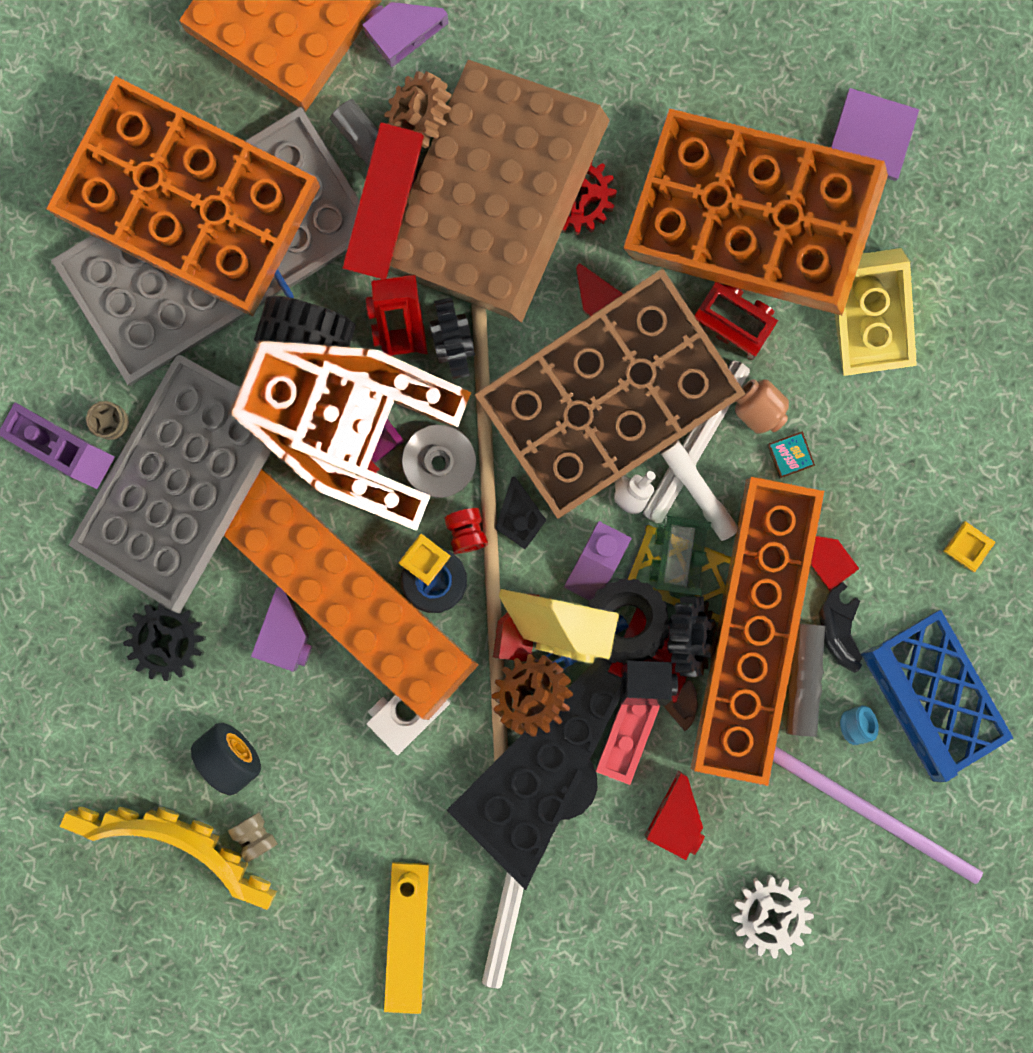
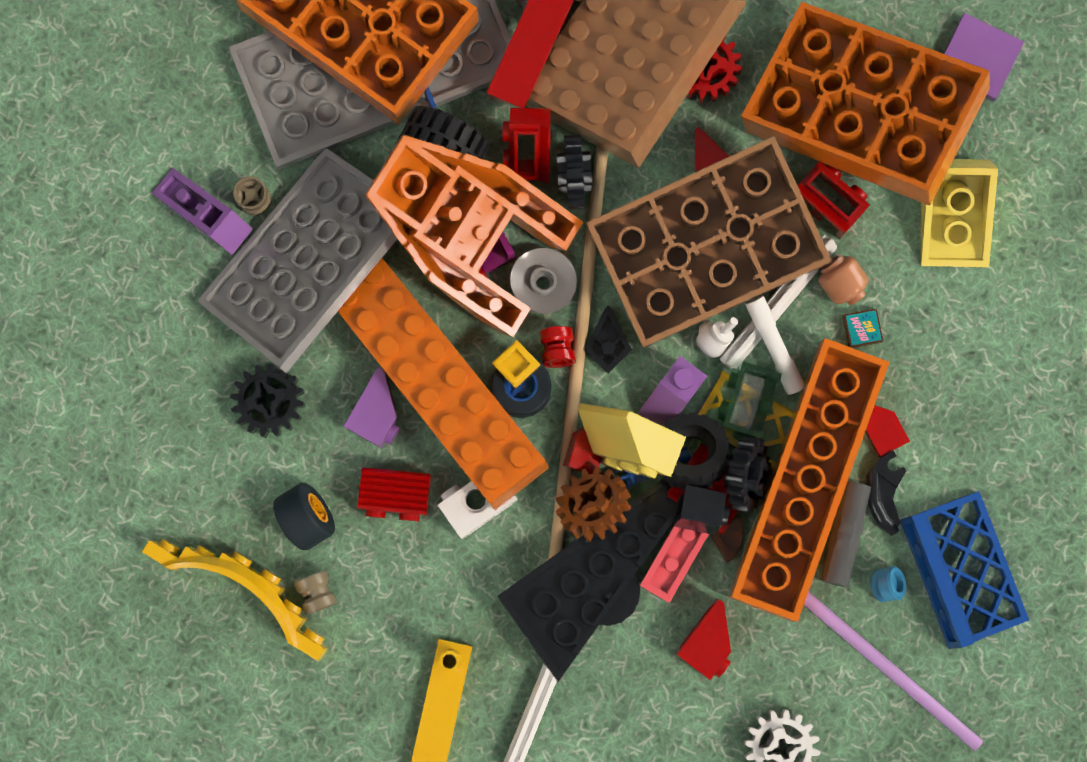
camera: 15 degrees right, 5 degrees down
(318, 717) = (394, 493): none -> red brick
(969, 546) = (1013, 438): yellow tile -> none

